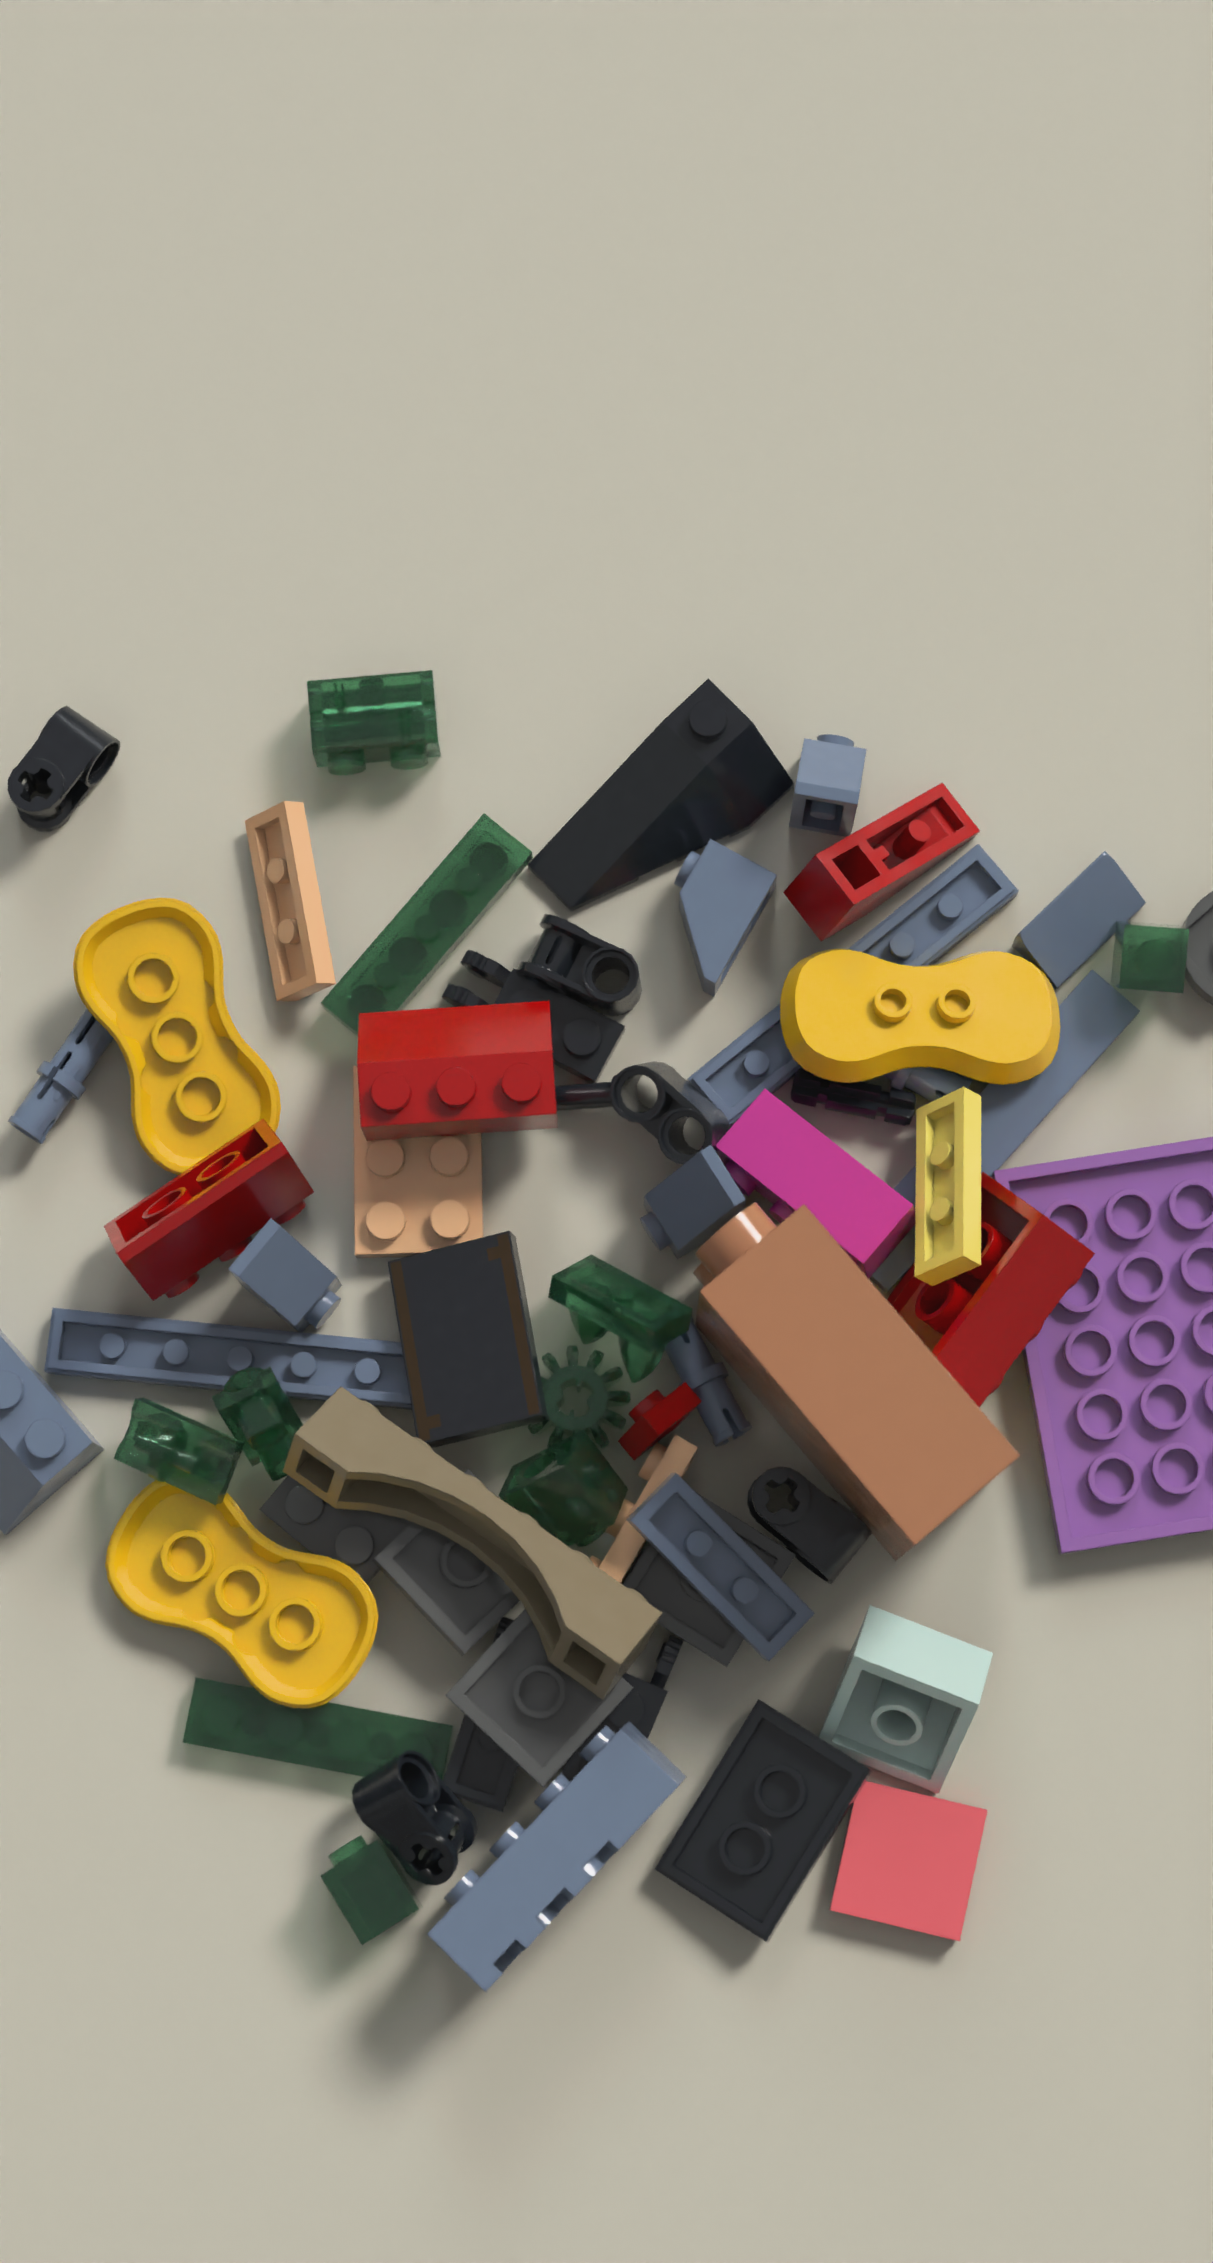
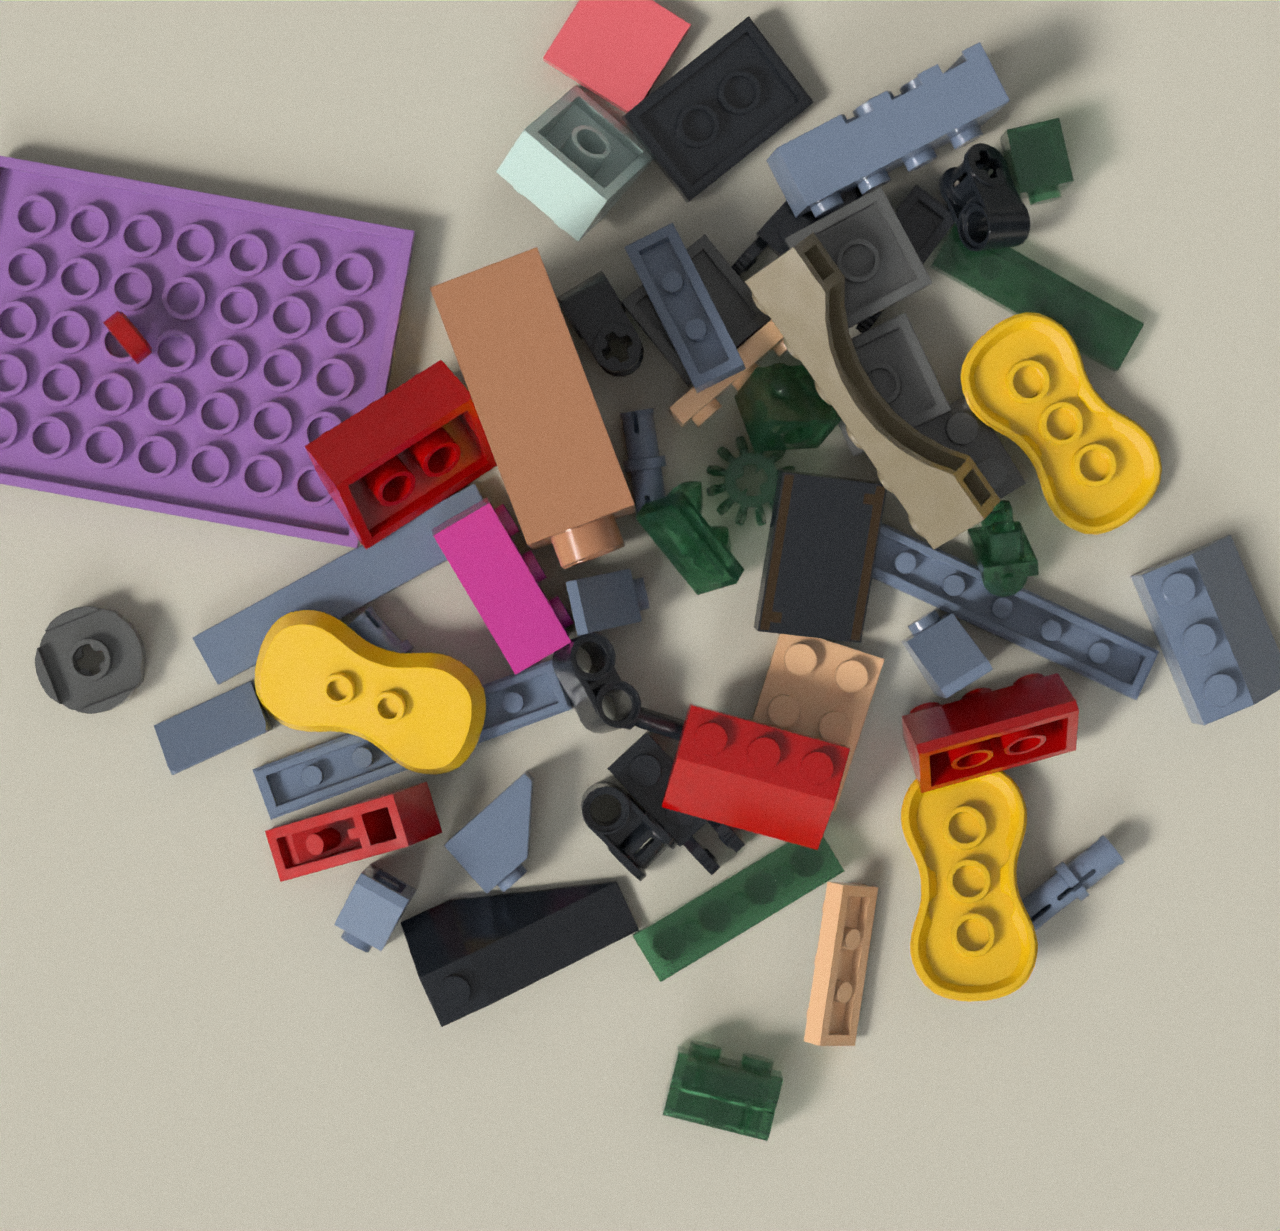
camera: 165 degrees left, 10 degrees up
(64, 760) = (984, 1144): black piece -> none
(179, 1451) = (1075, 547): clear green hips -> none
(656, 1418) = (691, 444): red plate -> none
(854, 1098) = (437, 640): black axle -> none
(948, 1187) = (399, 542): light yellow plate -> none
(1149, 956) = (168, 676): clear green brick -> none

